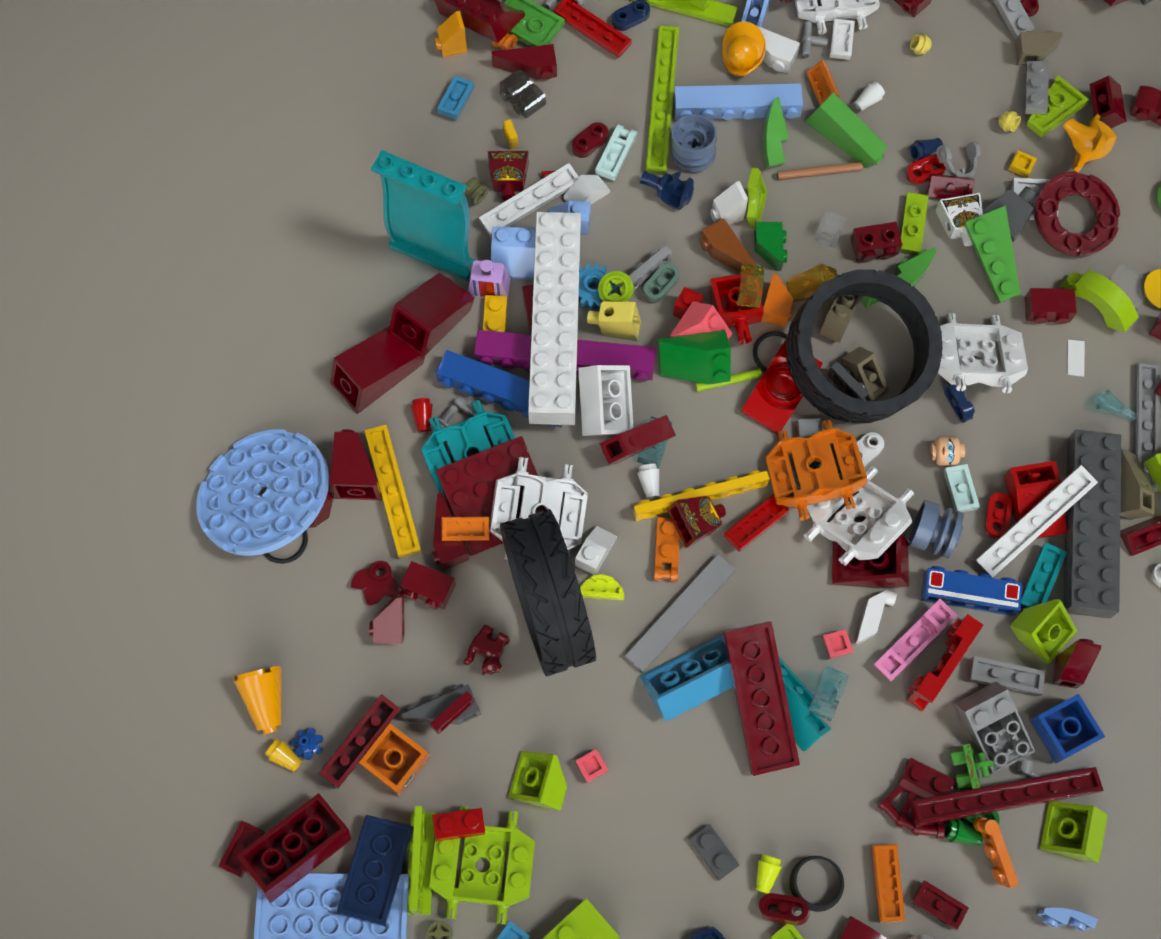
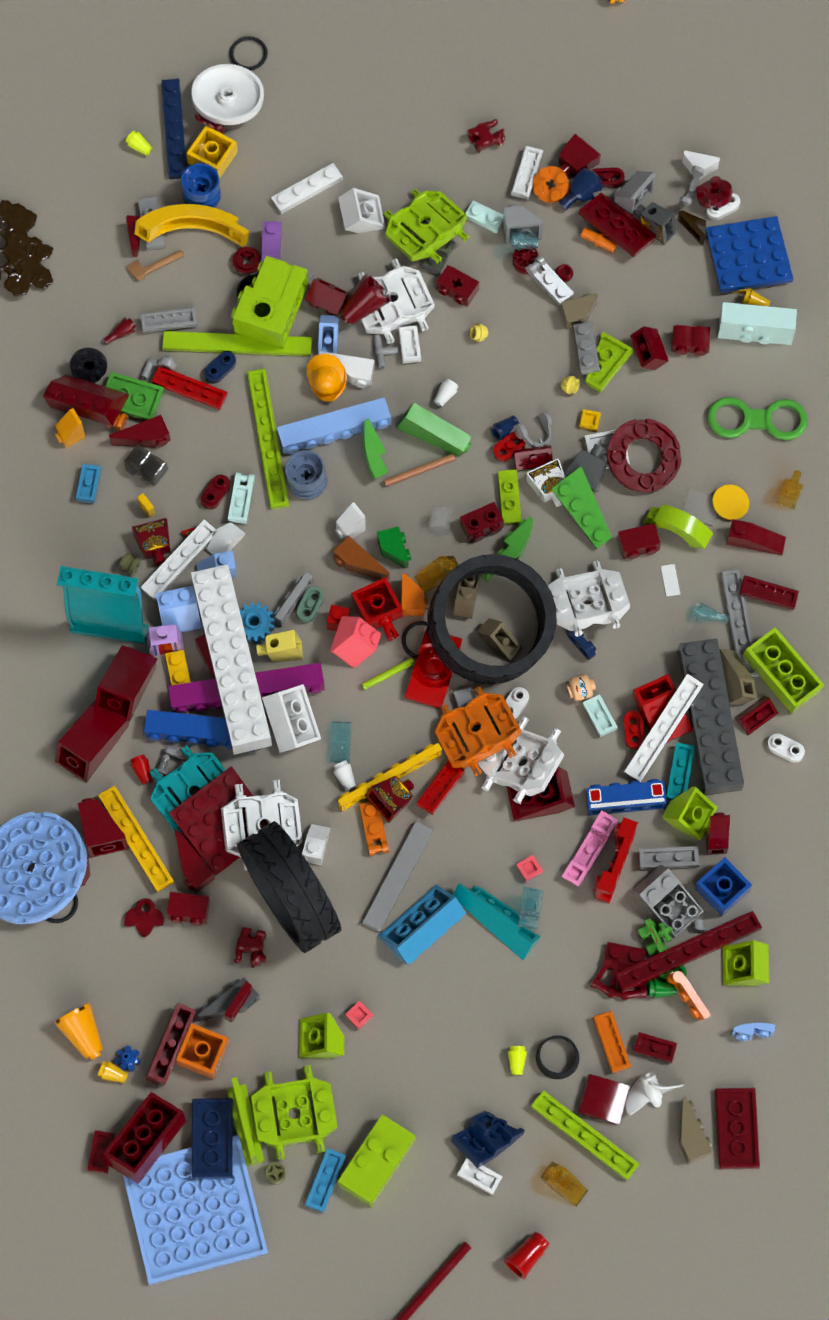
camera: 15 degrees left, 0 degrees up
(389, 622) = (166, 945): slope -> none
(458, 824) = (267, 1086): red piece -> none
(465, 528) = (206, 854): orange plate -> none
(602, 587) = (331, 872): neon yellow tile -> none
(616, 278) = (274, 611): lime gear -> none
(637, 440) = (326, 744): dark red slope -> none
(670, 188) = (296, 519): dark blue piece -> none
(696, 357) = (357, 662): green slope -> none
(714, 852) = (472, 1055): dark grey plate -> none
(750, 285) = (386, 590): clear yellow slope -> none
(757, 196) = (371, 506): lime tile -> none
(761, 698) = (478, 926): dark red plate -> none
(786, 907) = (537, 1082): dark red plate -> none
(822, 81) = (402, 390): orange plate -> none
(842, 378) = (482, 648): dark grey plate -> none
(873, 613) = (552, 837): white piece -> none
(936, 529) = (586, 755): sand blue wheel -> none
(1090, 141) = (640, 388): light orange piece -> none

